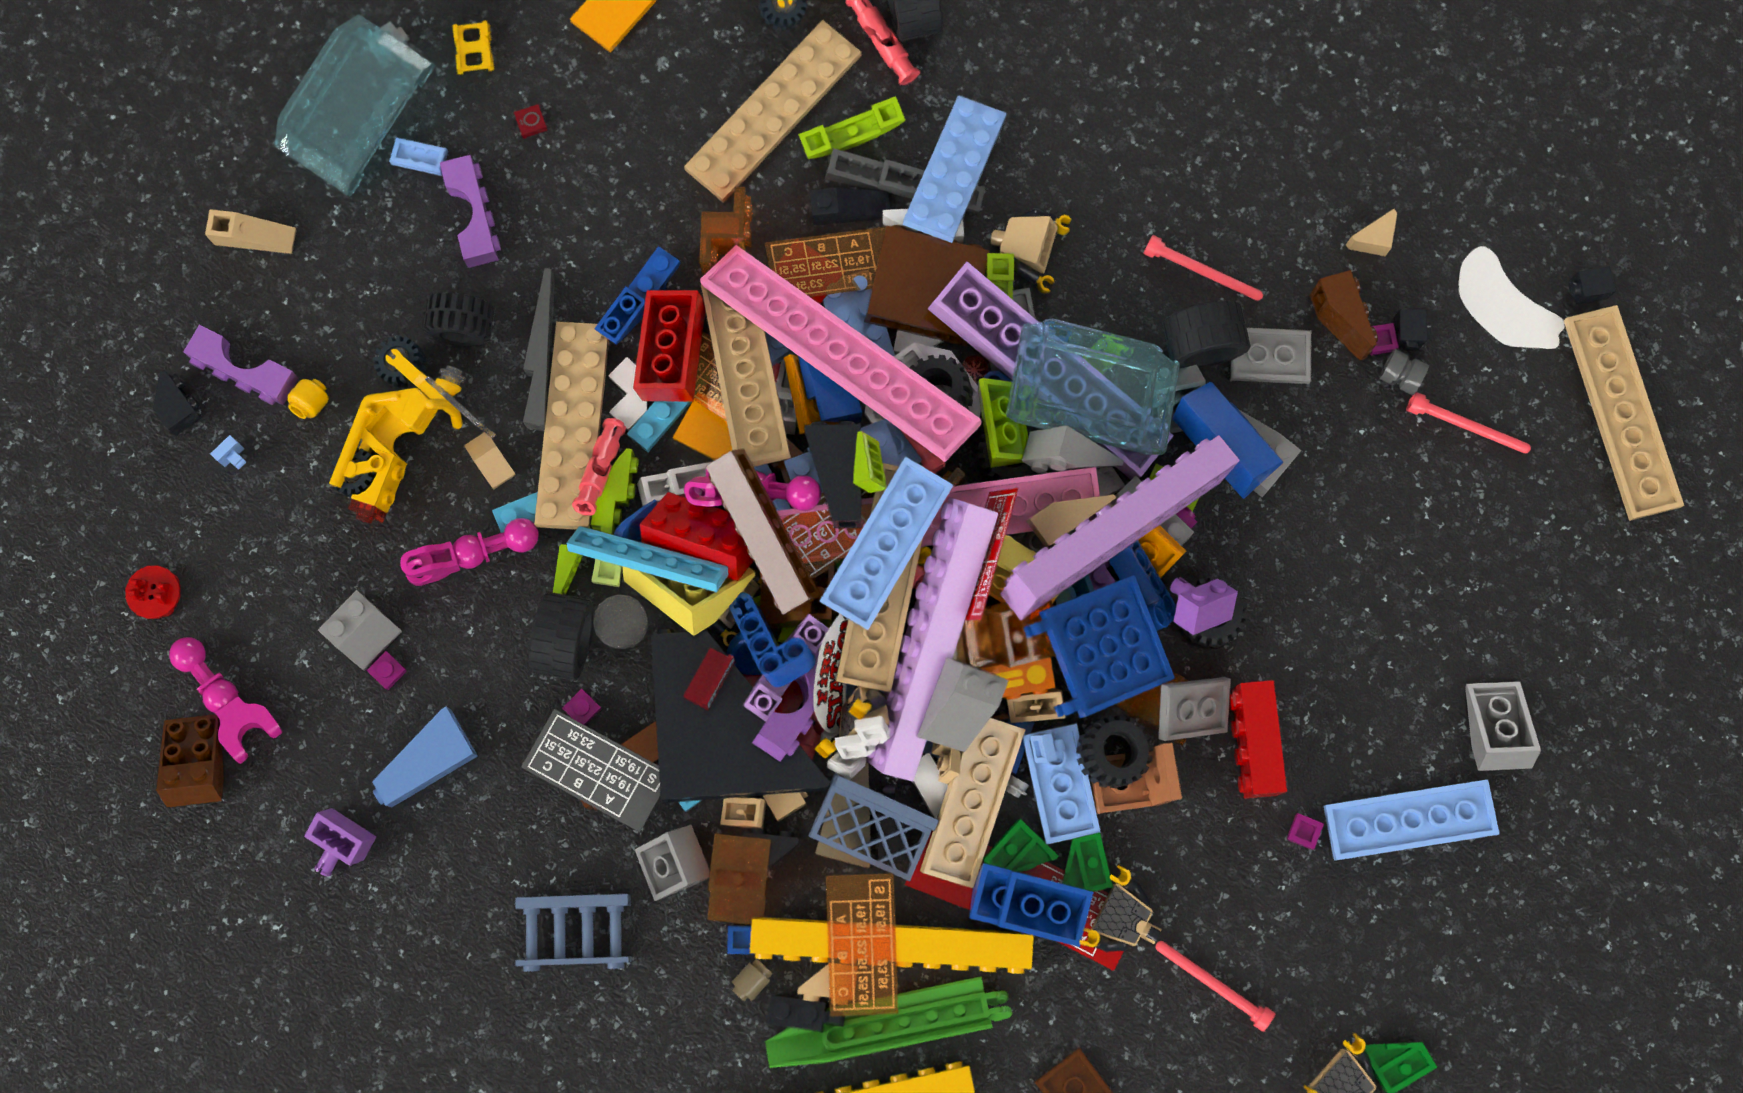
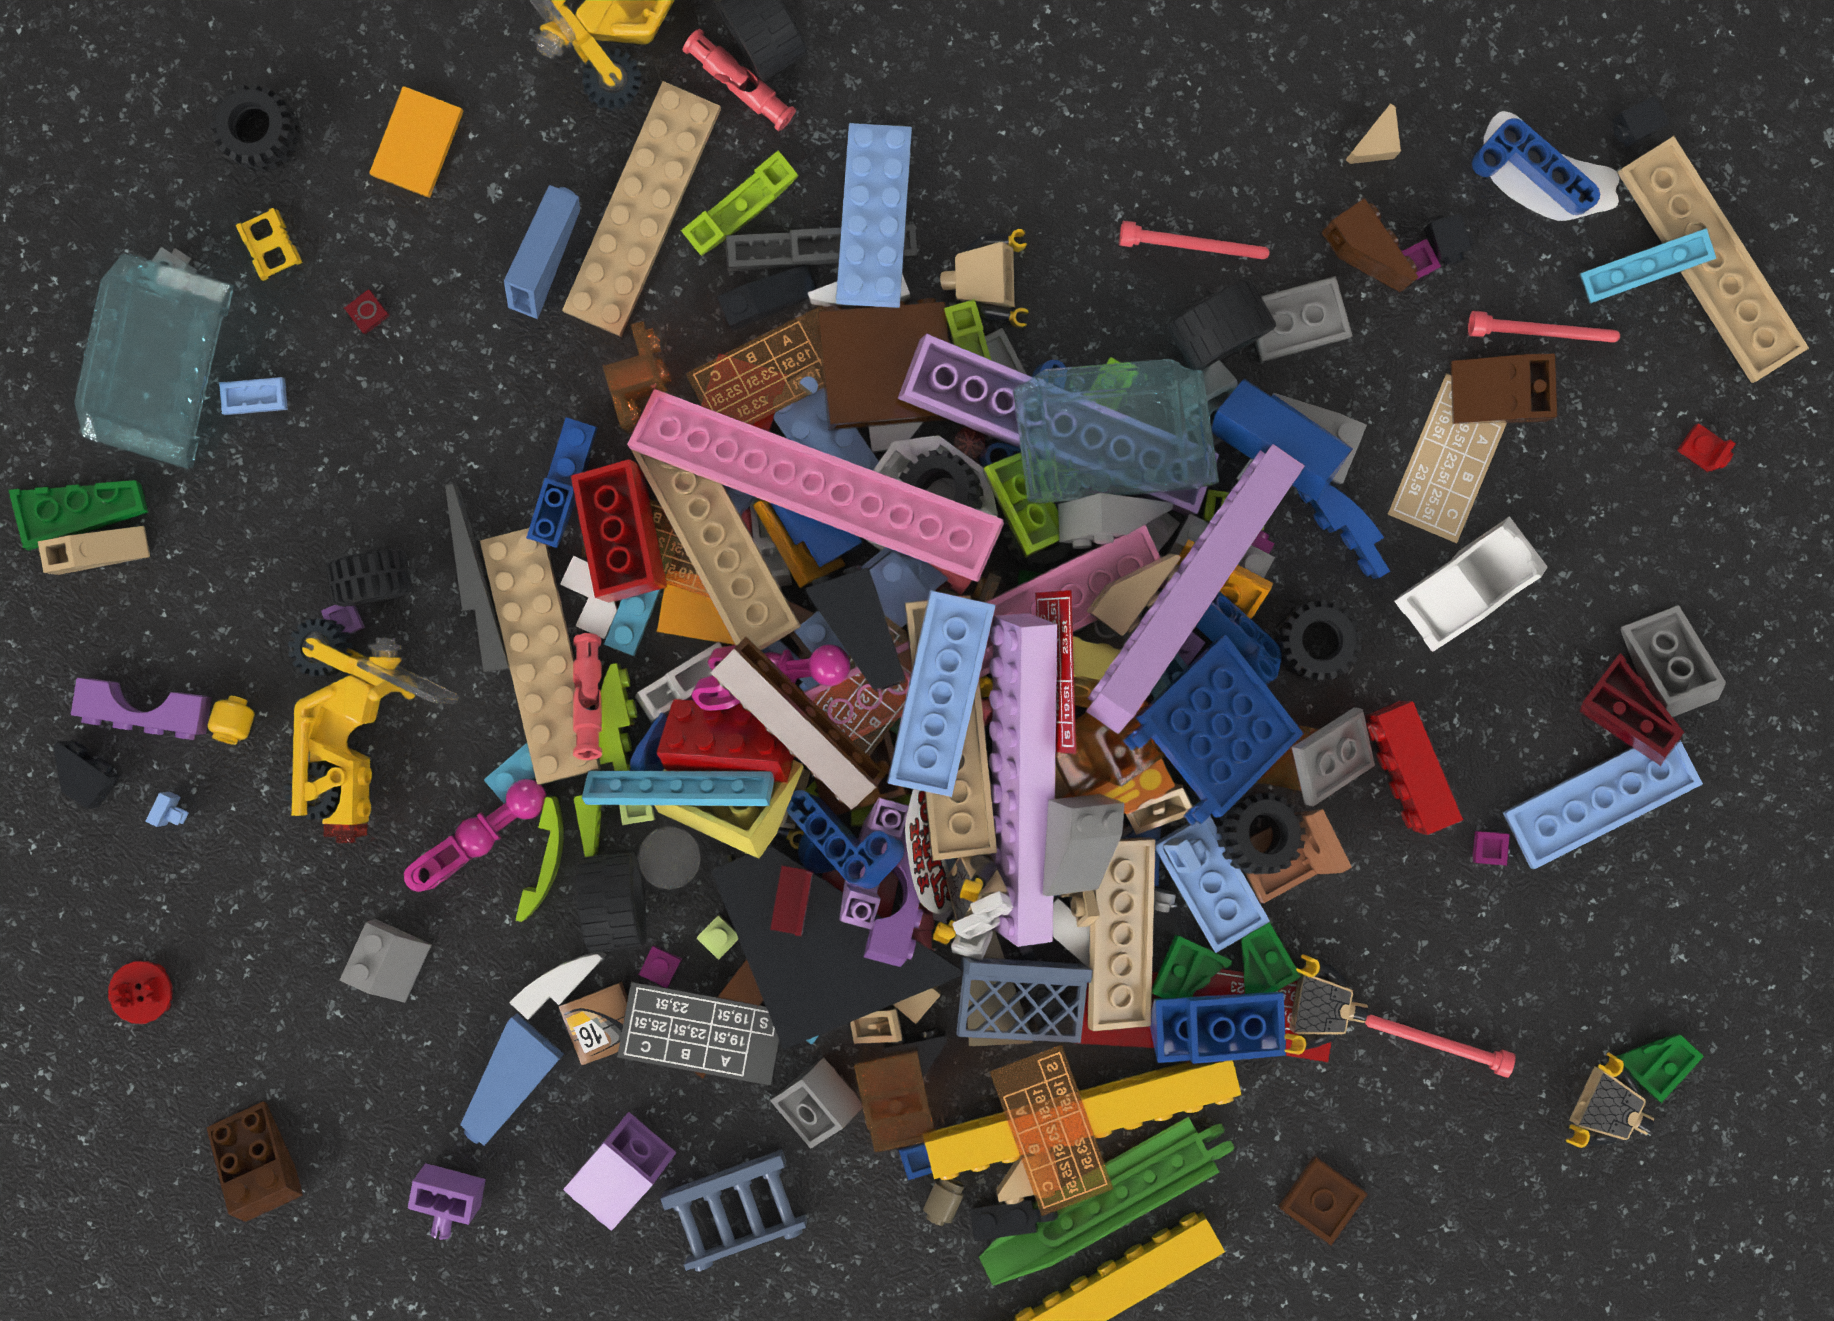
camera: 20 degrees left, 10 degrees up
(222, 698) = (261, 1085): dark pink piece -> none
(247, 197) = (74, 509): none -> green wing
(387, 670) = (431, 994): magenta plate -> none
(429, 346) = (347, 616): none -> medium lavender tile
(476, 241) = (357, 476): medium lavender arch -> none
(489, 460) = (461, 725): tan slope -> none
(489, 865) = (620, 1171): none -> slope
(492, 692) = (555, 983): none -> white slope
(496, 618) = (551, 820): none -> lime slope
(513, 736) = (596, 1022): none -> slope
(638, 699) = (718, 937): none -> yellowish green plate
(682, 117) = (541, 251): none -> medium blue slope
(868, 464) = (892, 611): lime slope -> none
(1203, 605) = (1312, 643): medium lavender brick -> none
(1258, 515) = (1359, 532): none -> blue slope
(1350, 605) = (1472, 584): none -> white piece
(1363, 504) = (1445, 470): none -> tan sticker
(1404, 371) = (1459, 293): dark grey wheel -> none
(1422, 460) = (1504, 389): none -> reddish brown slope
(1454, 753) = (1632, 713): none -> dark red wedge
(1499, 299) = (1540, 172): none -> blue beam
(1568, 398) = (1648, 265): none -> medium azure plate
(1577, 561) = (1706, 448): none -> red bracket

